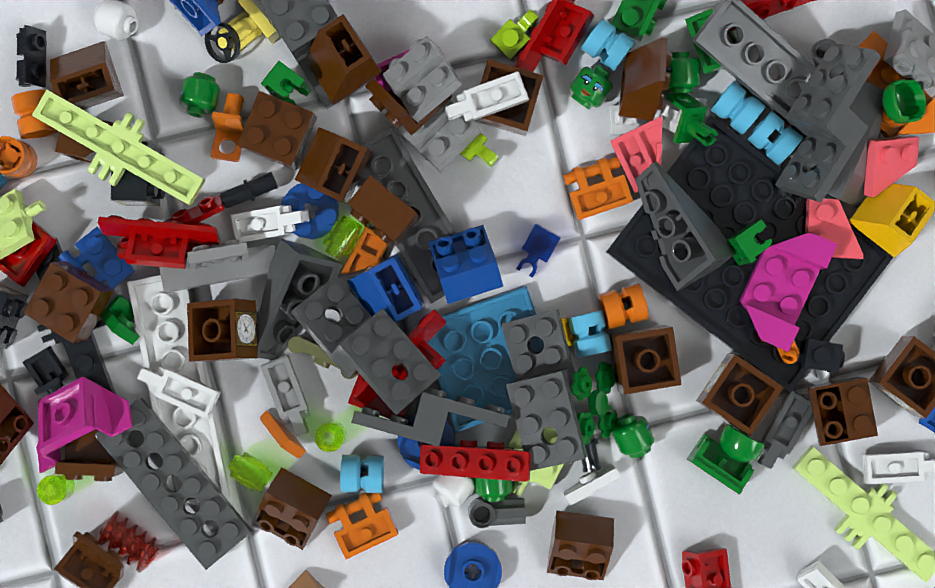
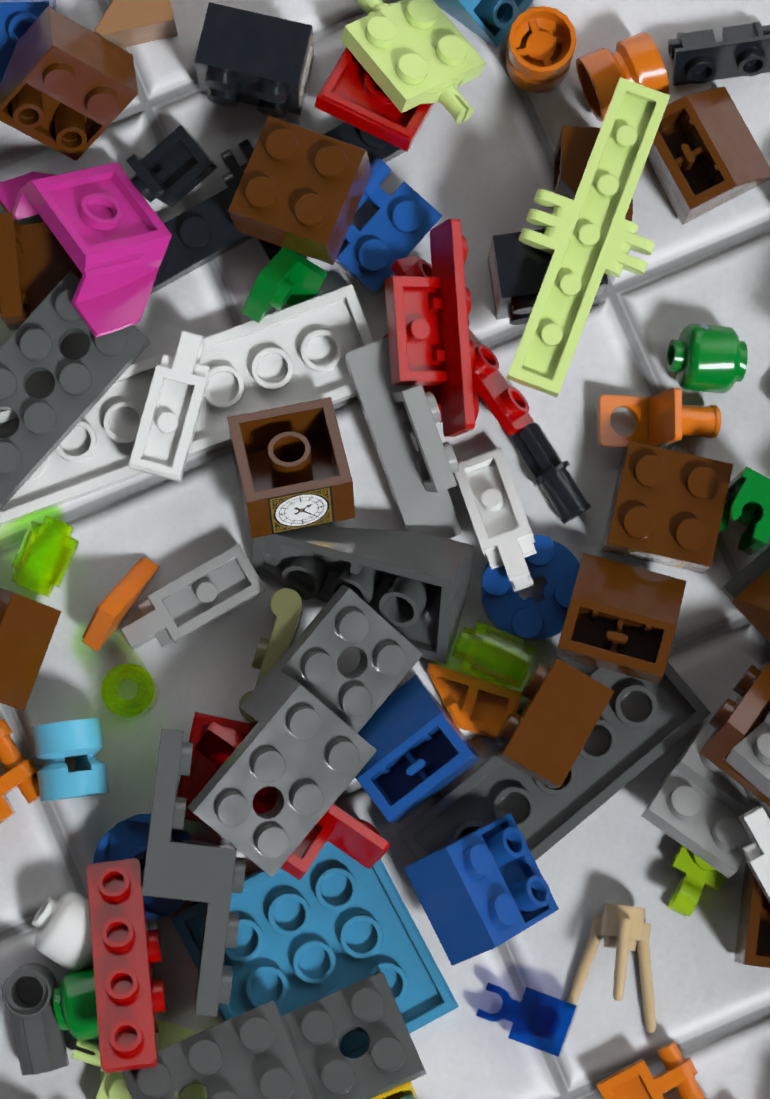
camera: 75 degrees right, 5 degrees down
(499, 193) = (622, 929): none -> tan plant

